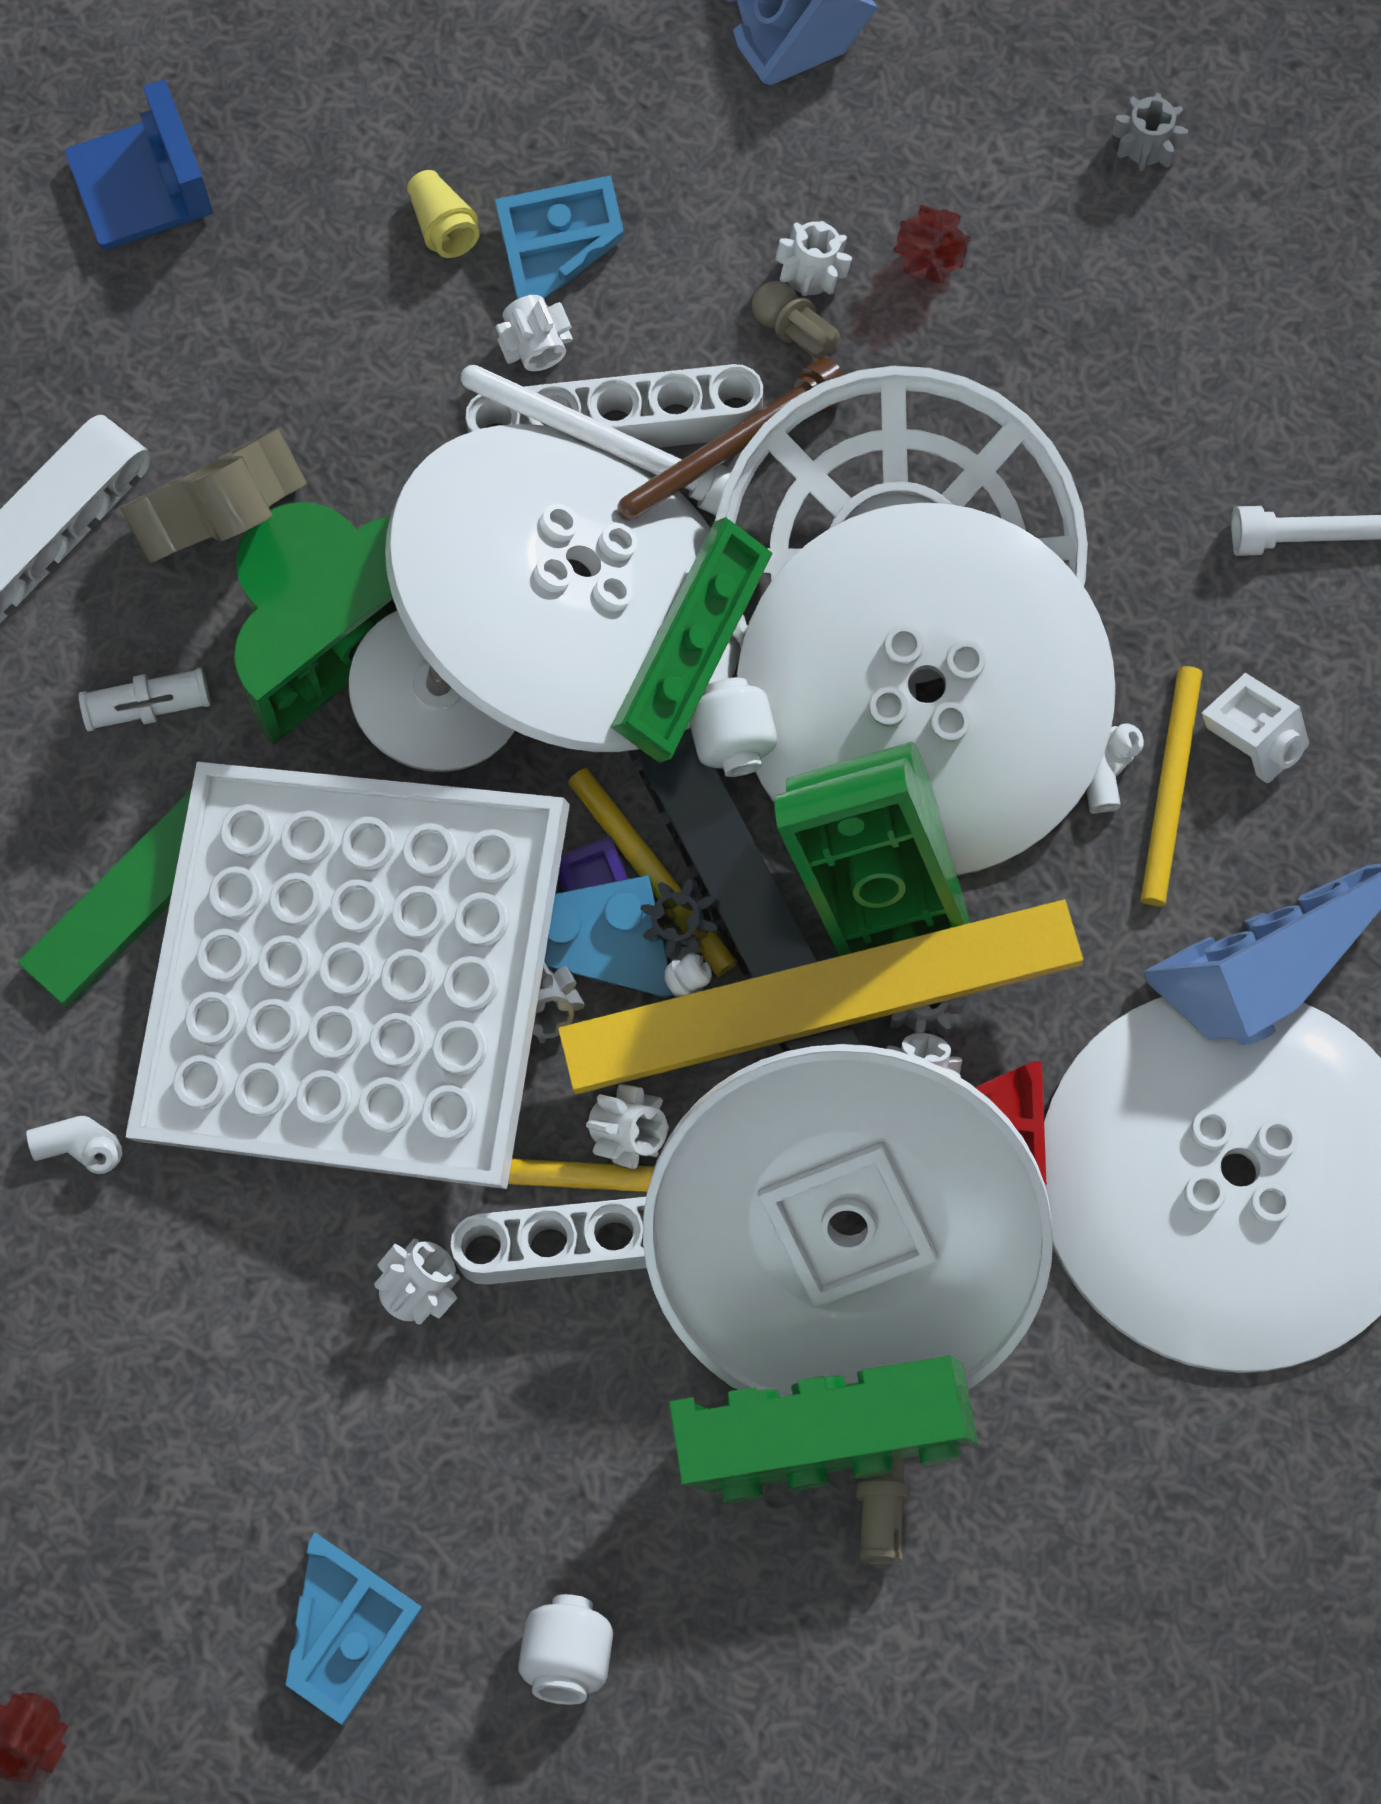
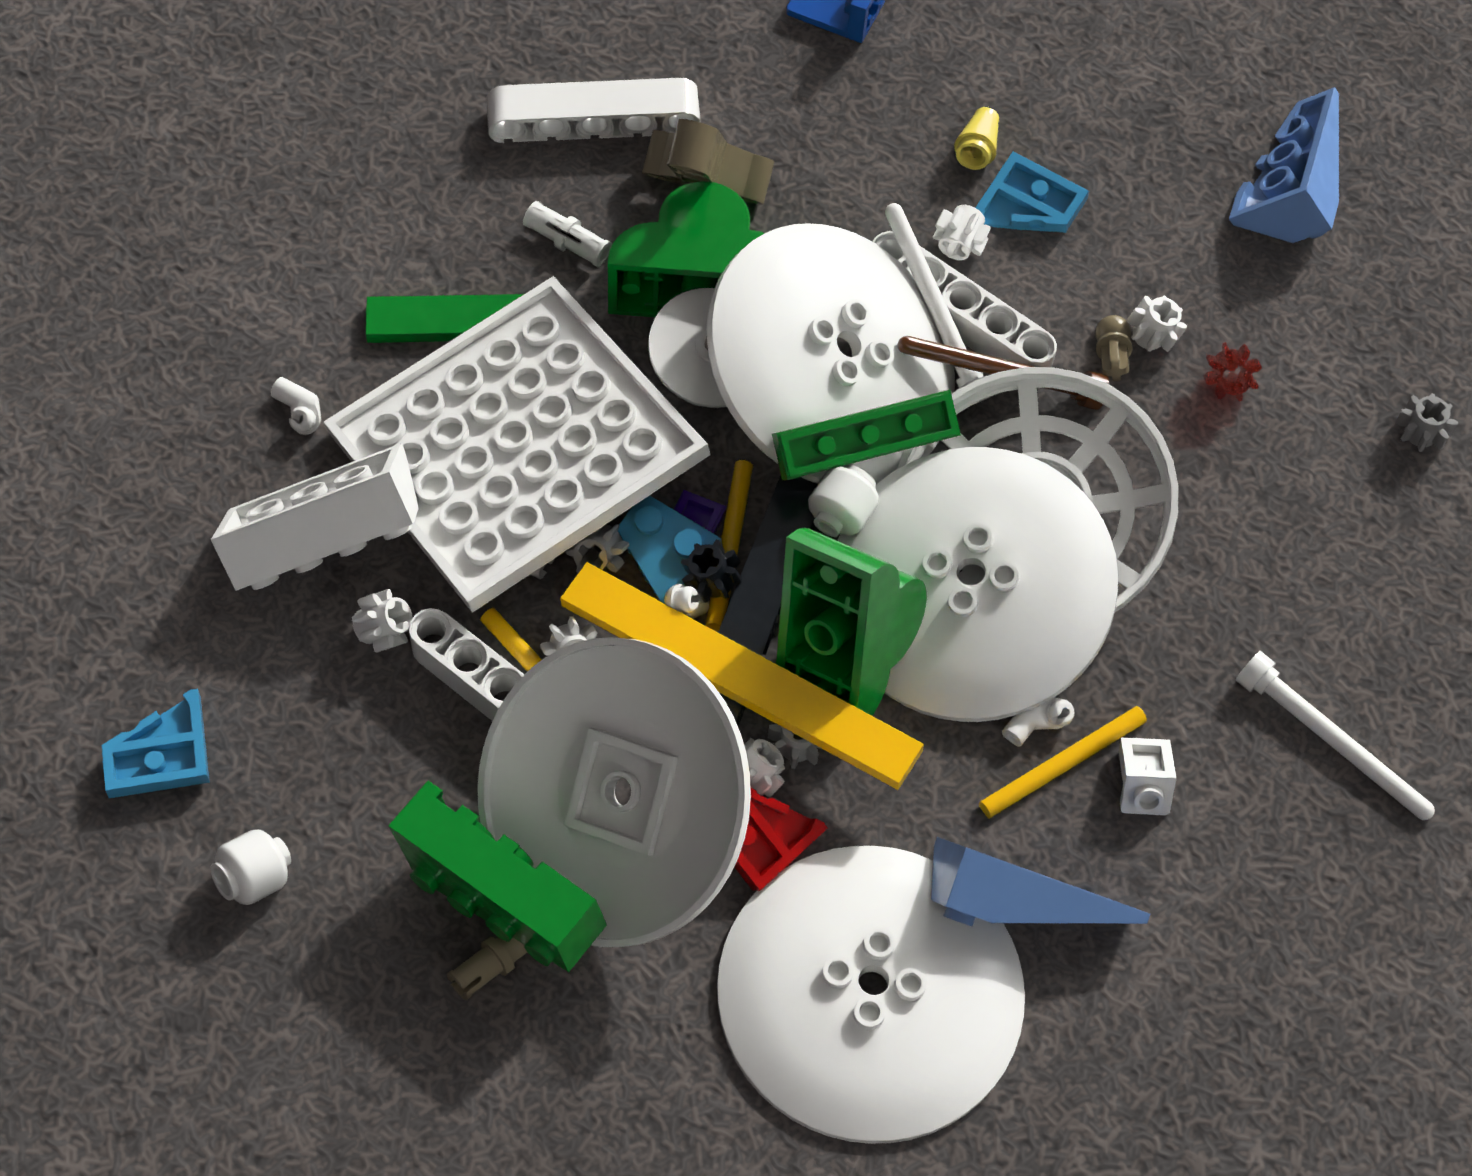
camera: 40 degrees right, 10 degrees down
(244, 1244) = (317, 519): none -> white slope

